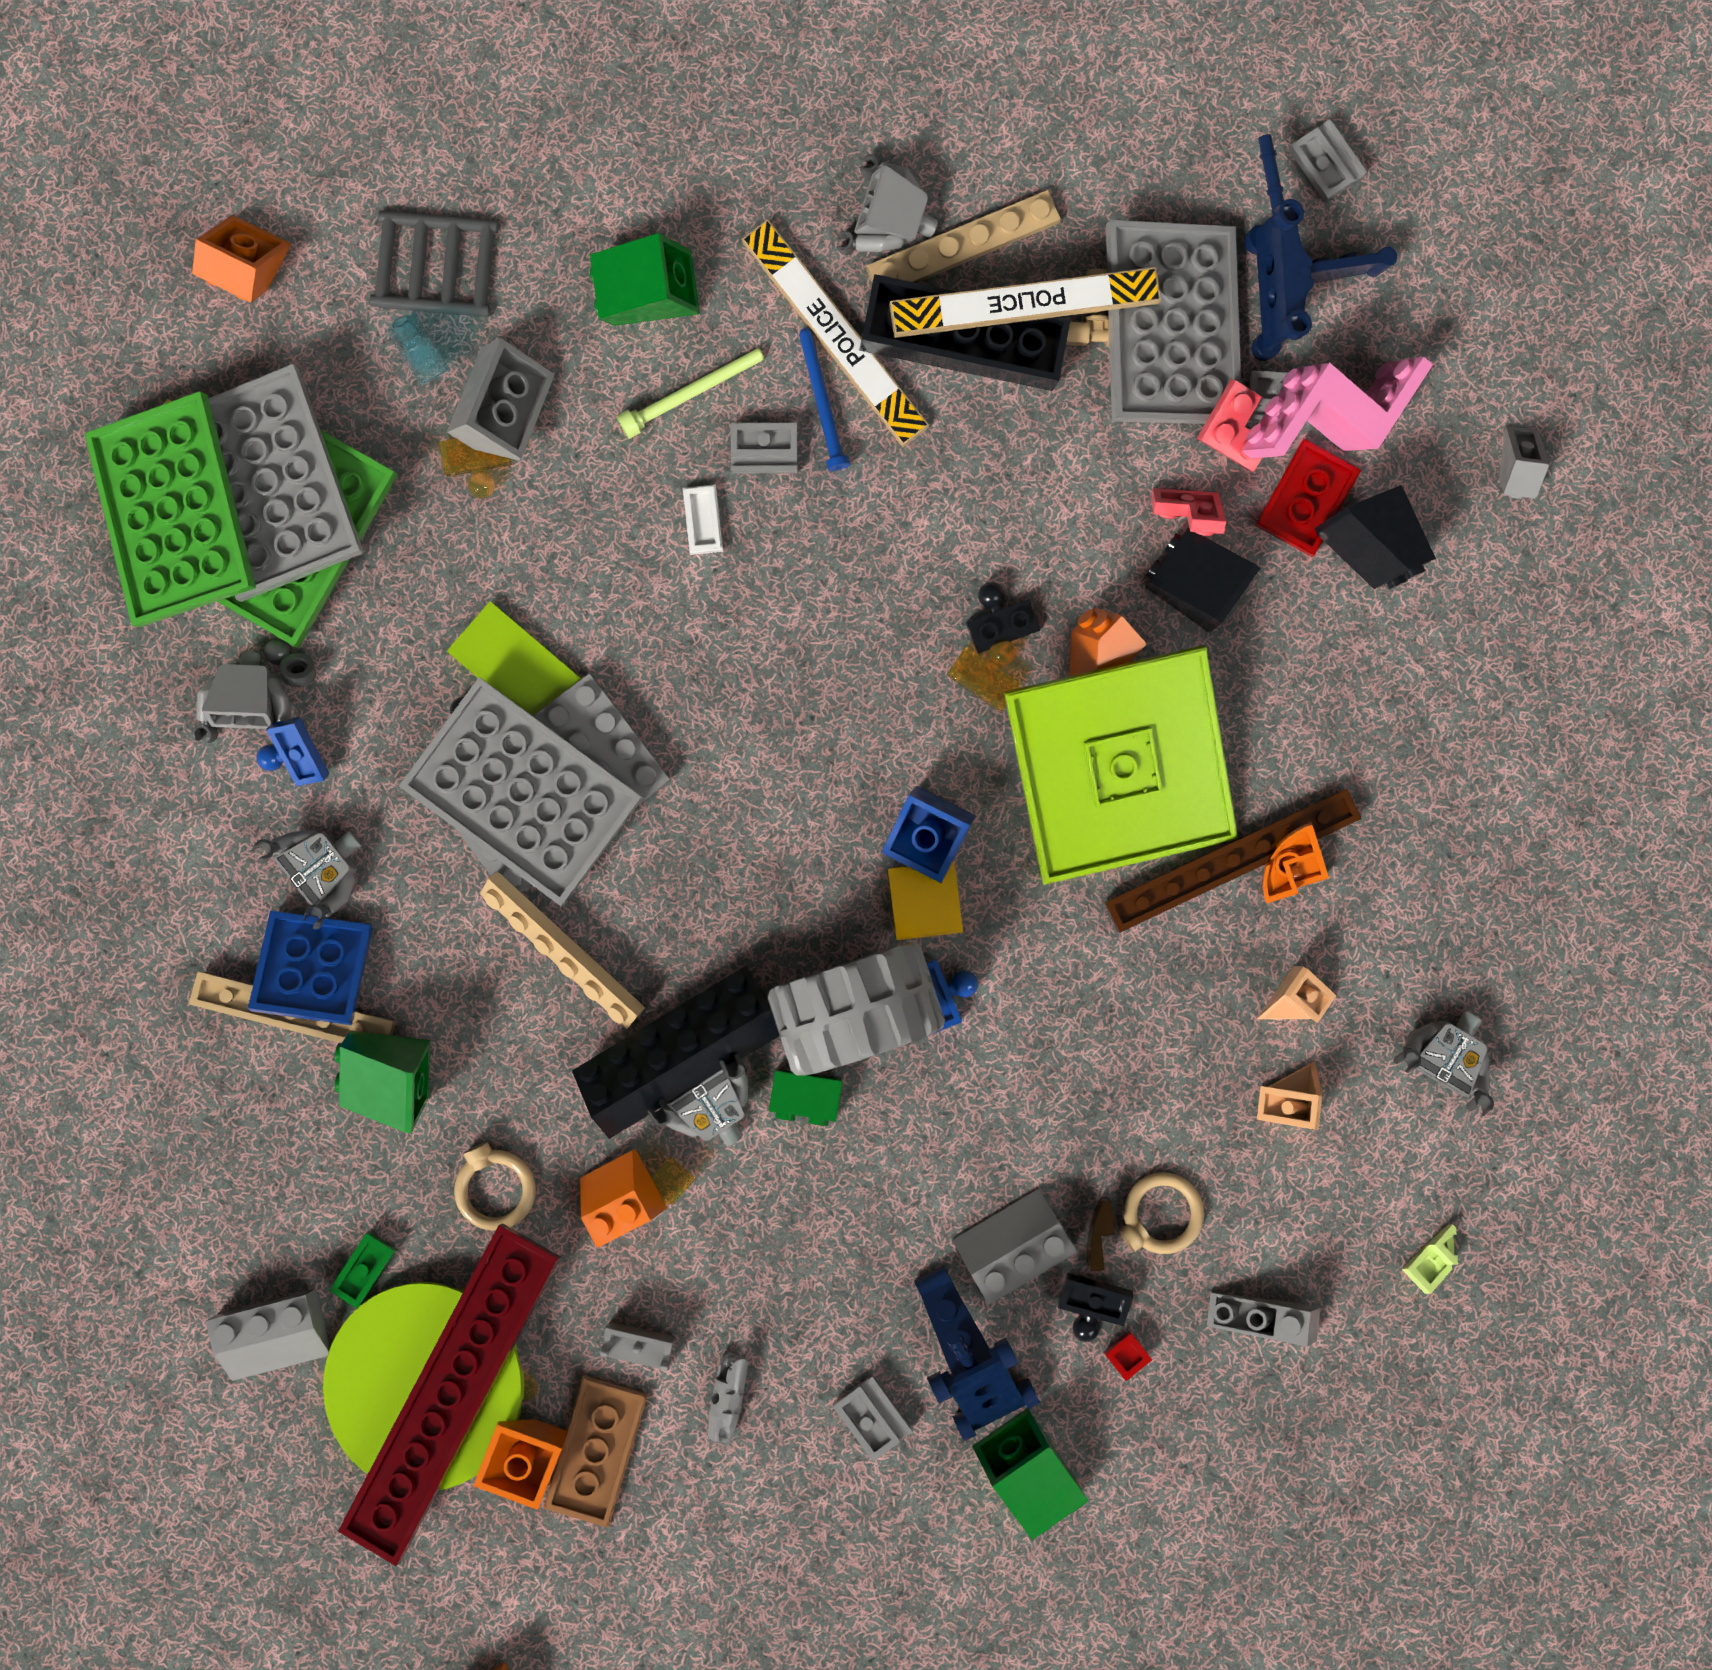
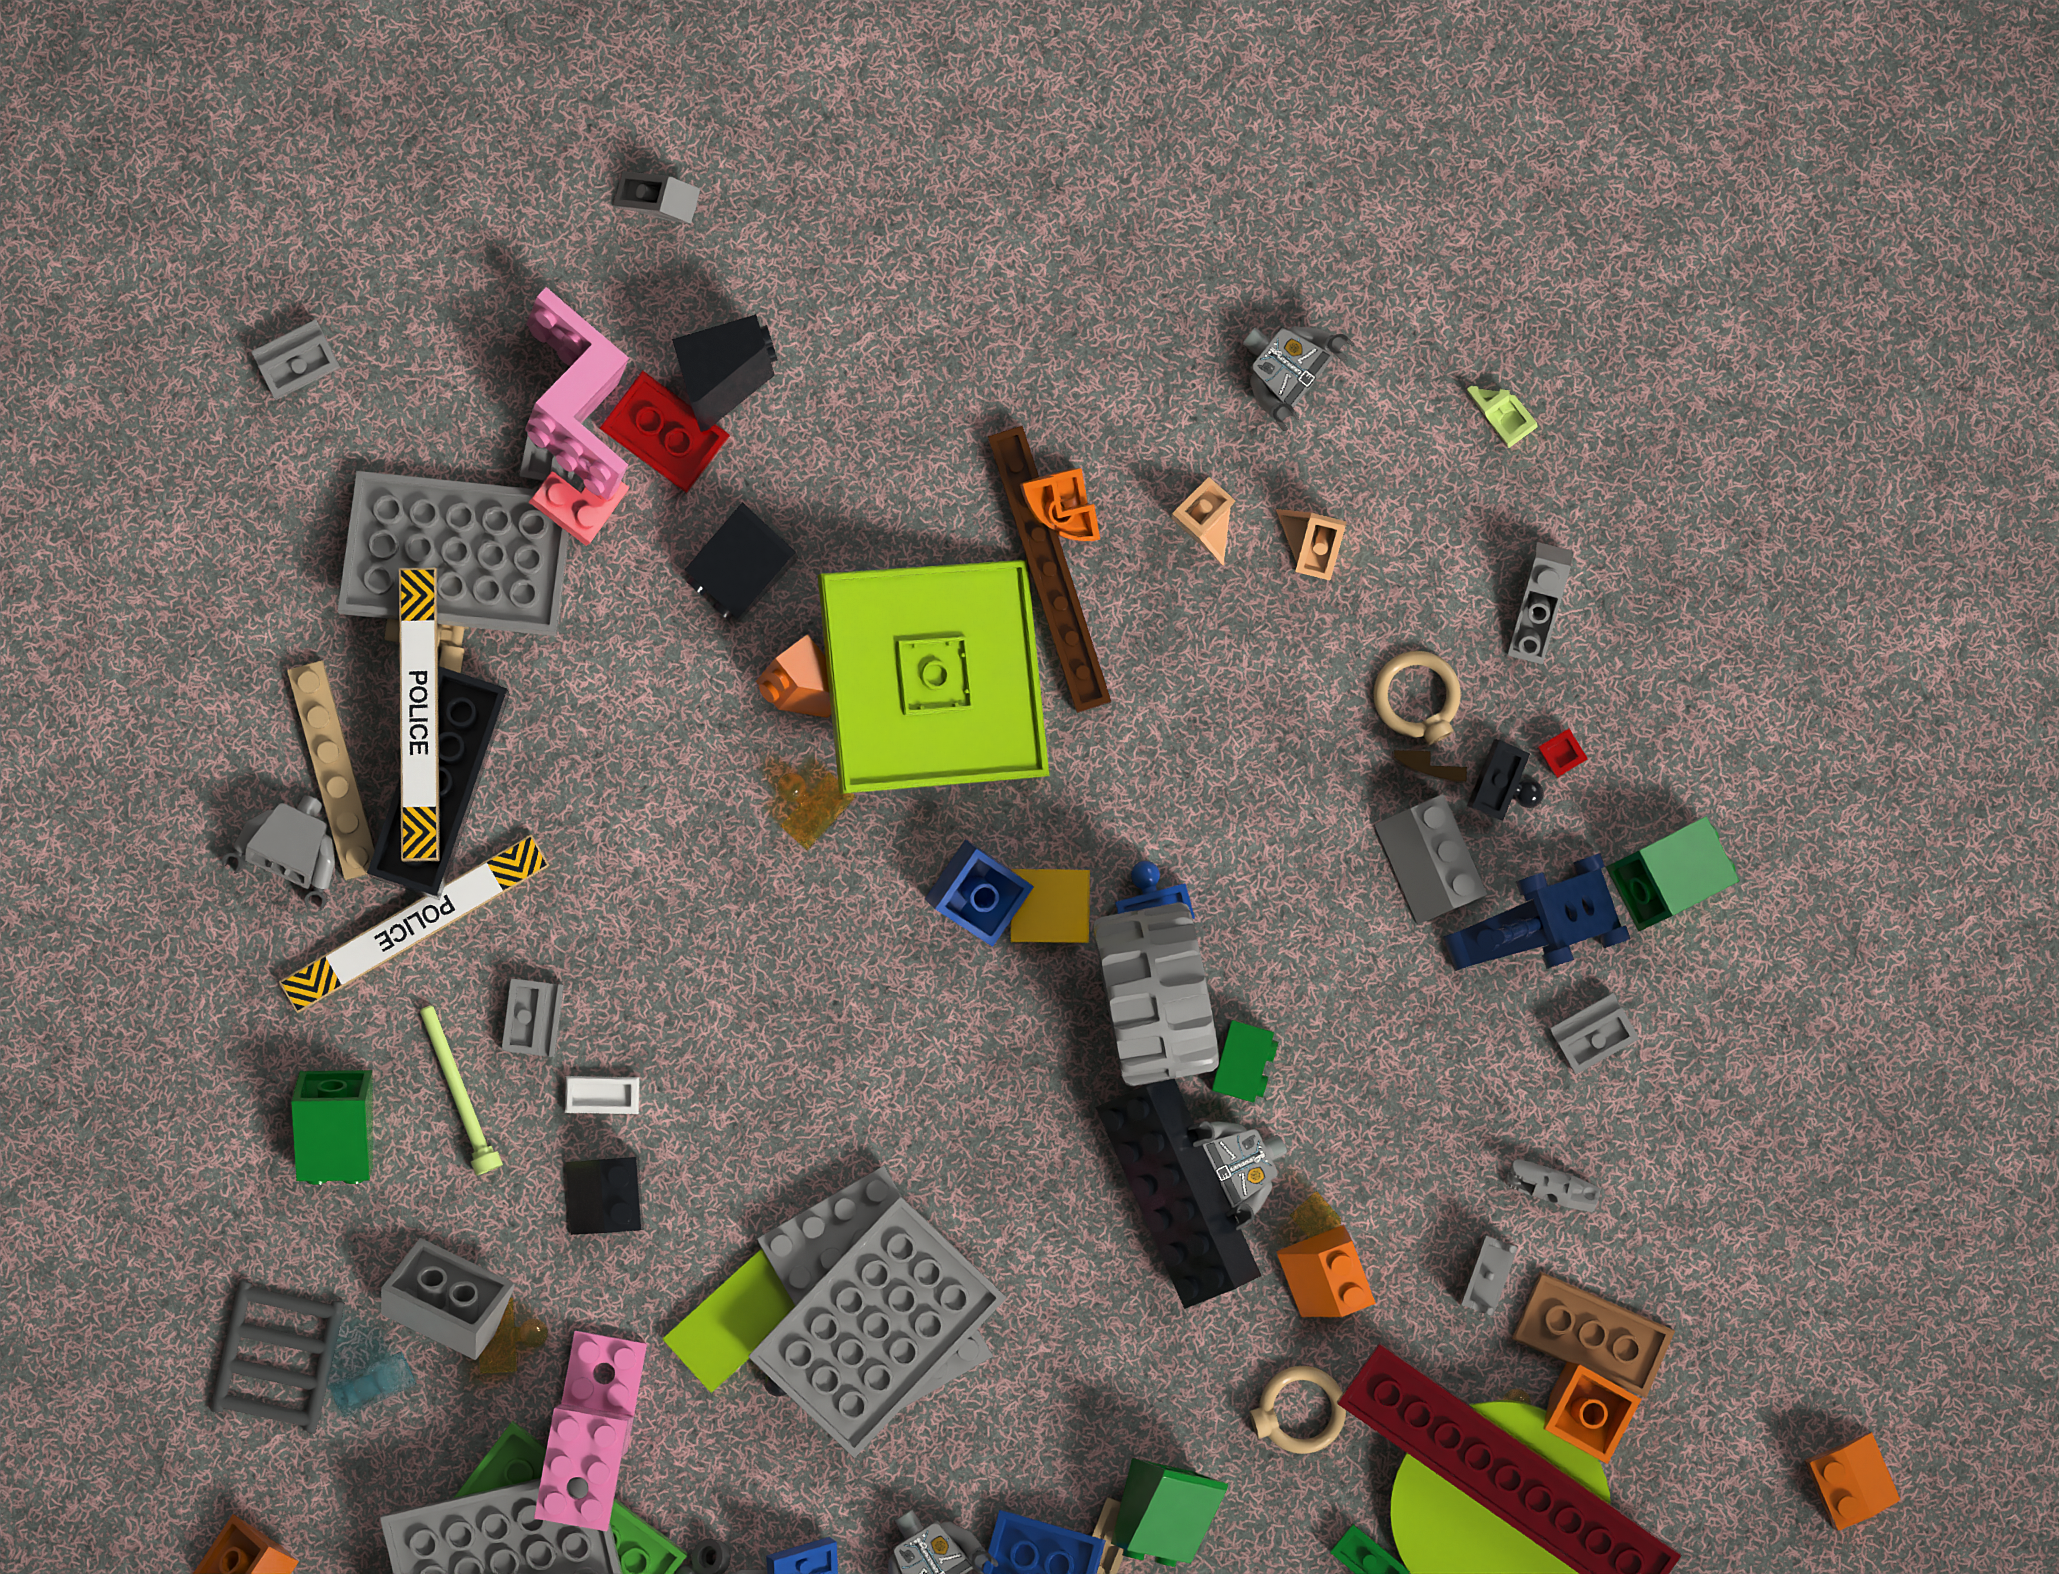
camera: 80 degrees left, 0 degrees up
(391, 542) = (590, 1431): none -> bright pink bracket
(562, 950) = (1053, 1305): tan plate -> none
(612, 534) = (604, 1195): none -> black slope
(837, 459) = (489, 947): blue bar -> none
(1001, 623) = (759, 783): black plate -> none
(1201, 508) = (660, 554): coral plate -> none
(1288, 271) = (418, 427): dark blue piece -> none

